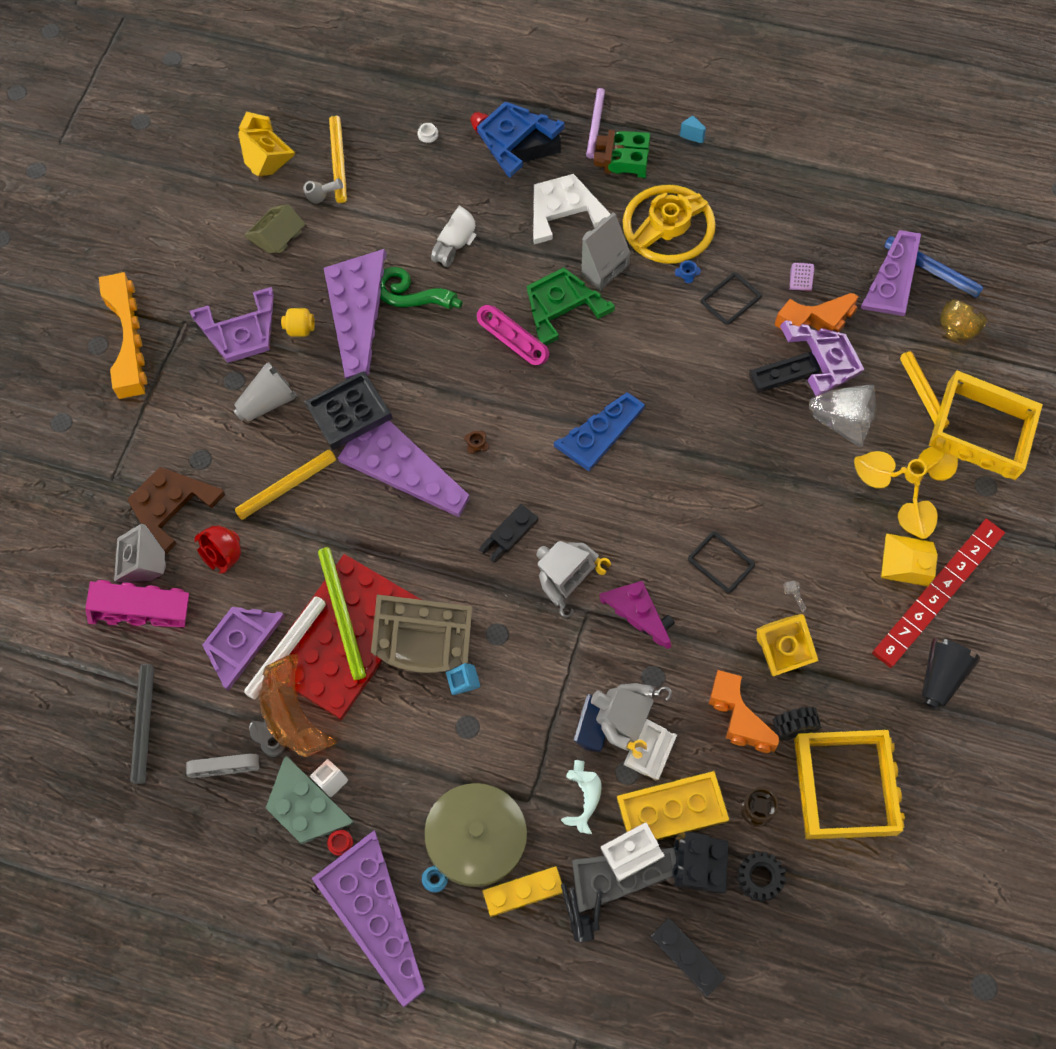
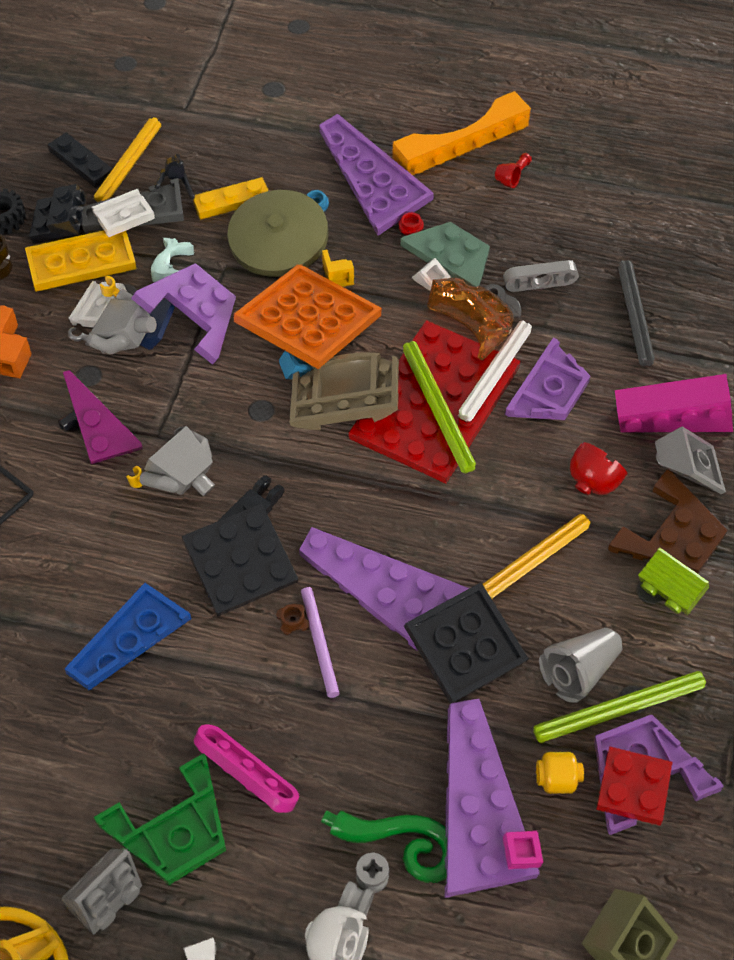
camera: 175 degrees right, 10 degrees down
(182, 452) = (673, 582): none -> lime brick
(216, 997) = (424, 151): none -> light orange arch
(228, 909) = (510, 173): none -> red bar
(243, 371) = (619, 706): none -> lime axle
(249, 309) = (634, 785): none -> red plate
(331, 268) = (522, 849): none -> dark pink plate
(418, 783) = (338, 271): none -> yellow panel
(435, 275) = (372, 879): none -> light grey wheel
(449, 719) = (307, 315): none -> orange plate
(457, 426) = (320, 642): none -> lavender bar
(516, 485) = (239, 559): none -> black plate
(552, 742) = (197, 297): none -> medium lavender wing
(634, 952) = (128, 160): none -> yellow axle

